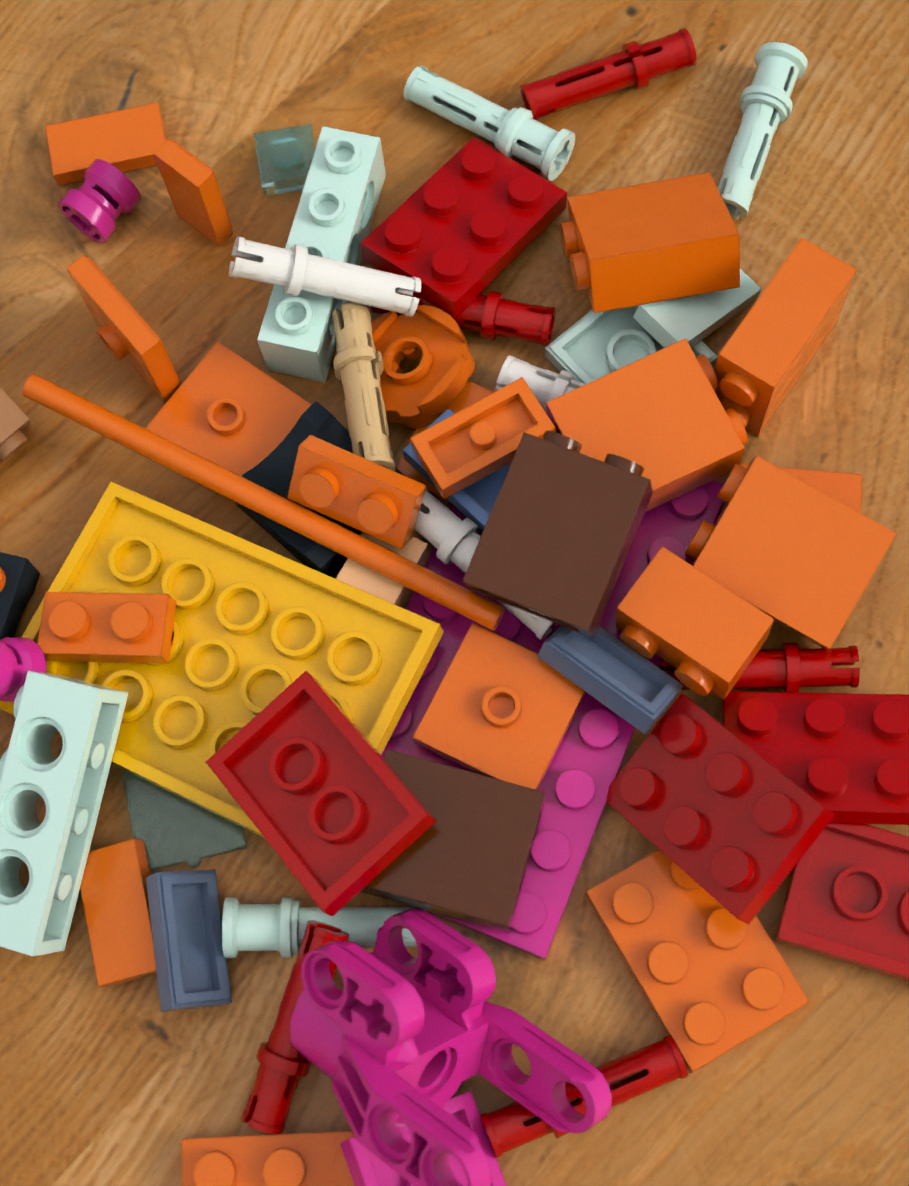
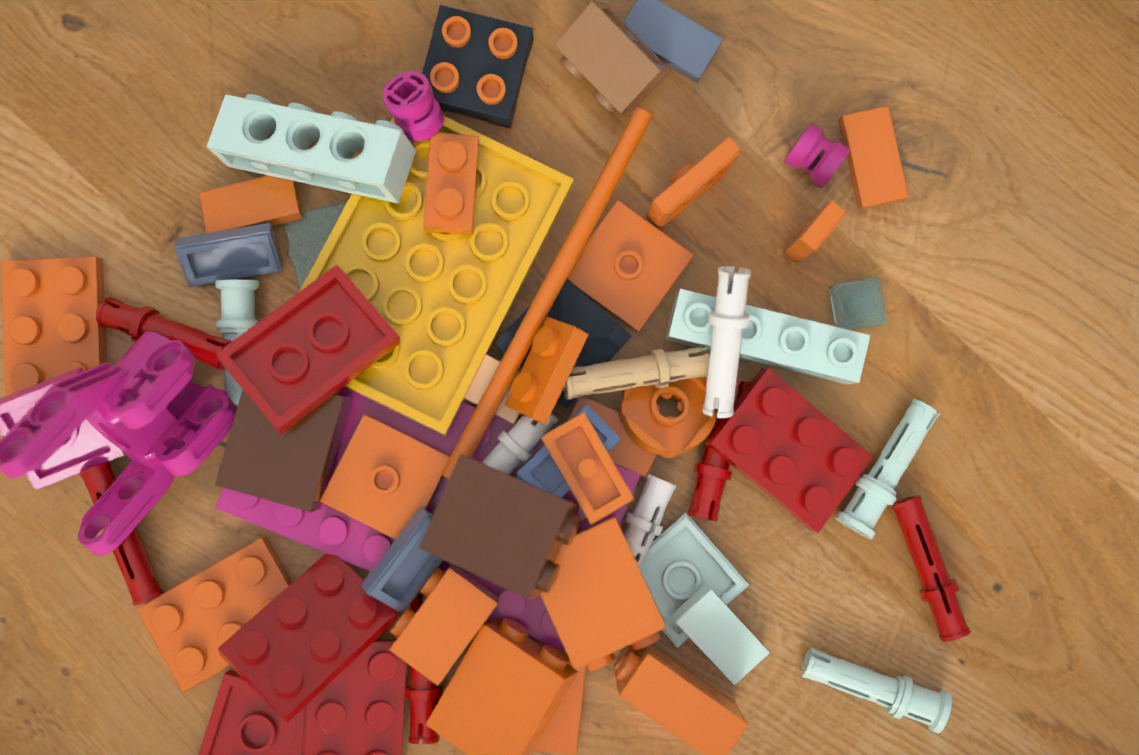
camera: 80 degrees right, 15 degrees up
(651, 242) = (766, 600): orange brick -> none

